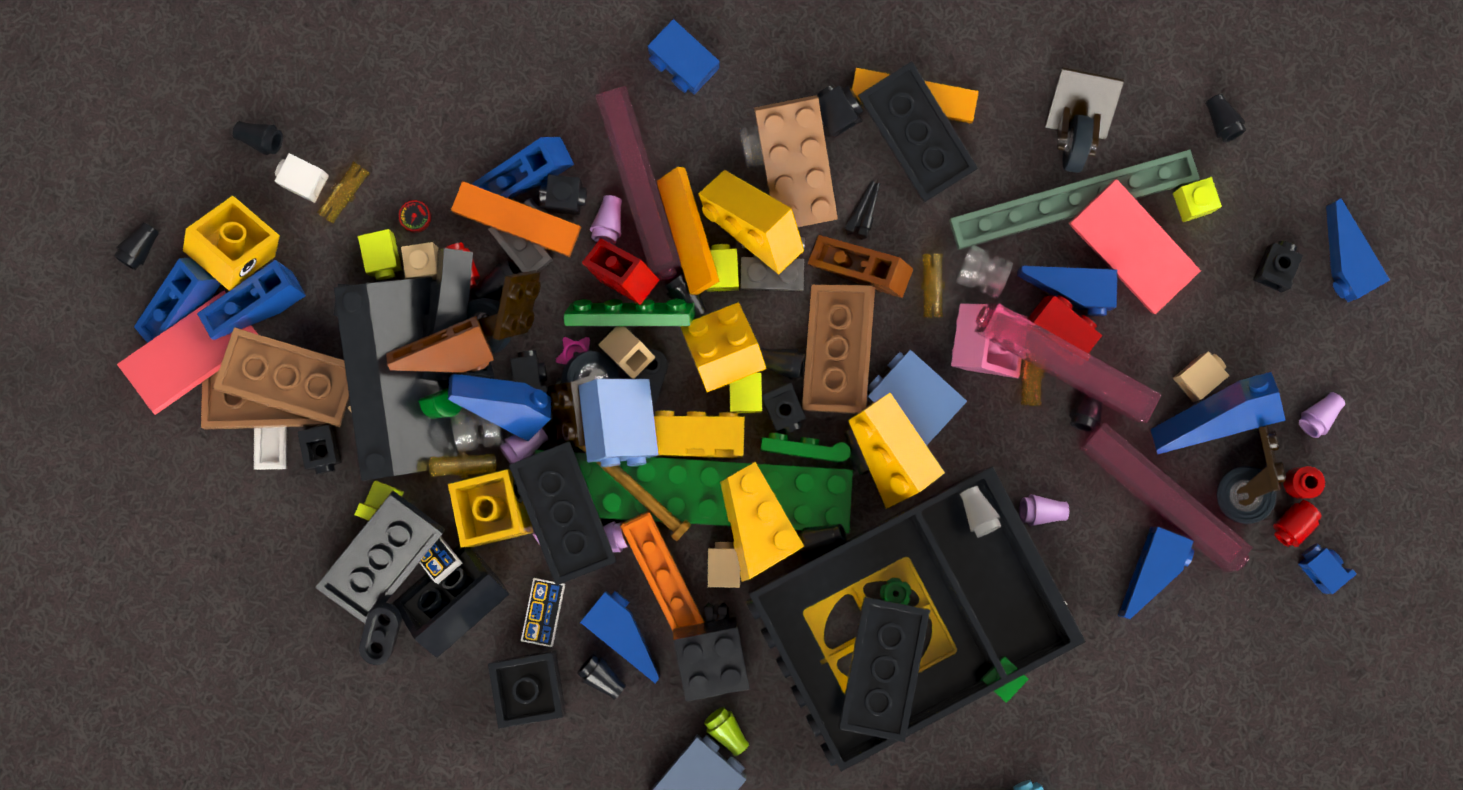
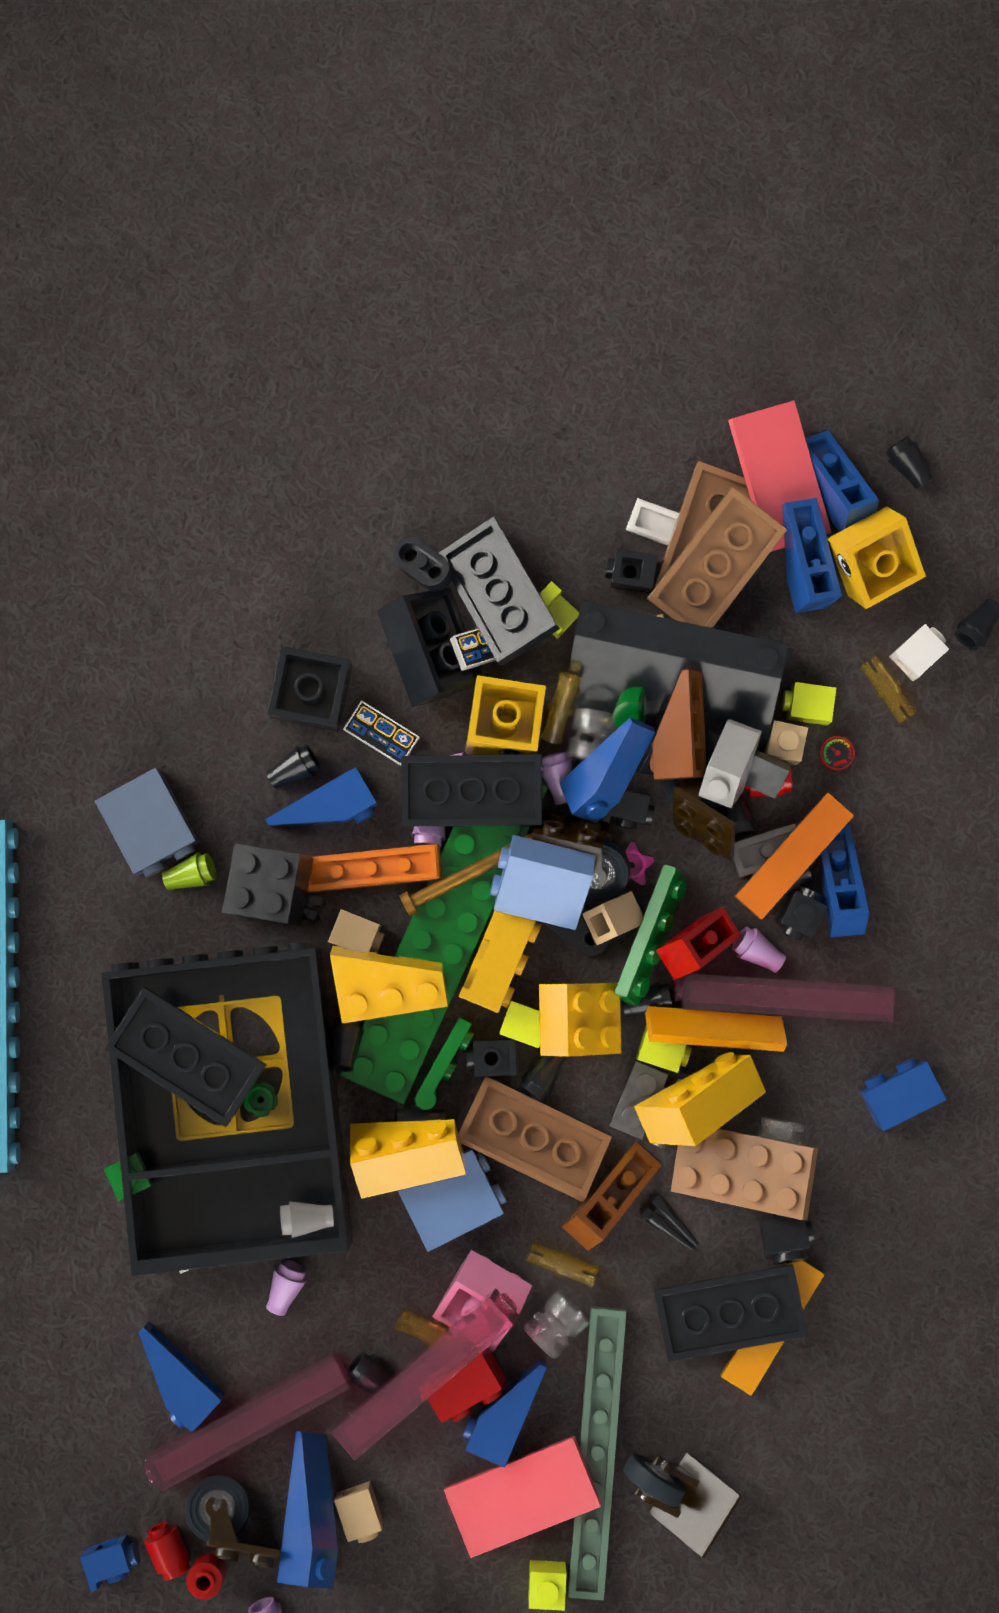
camera: 115 degrees right, 0 degrees up
(456, 299) = (730, 764): none -> light grey slope

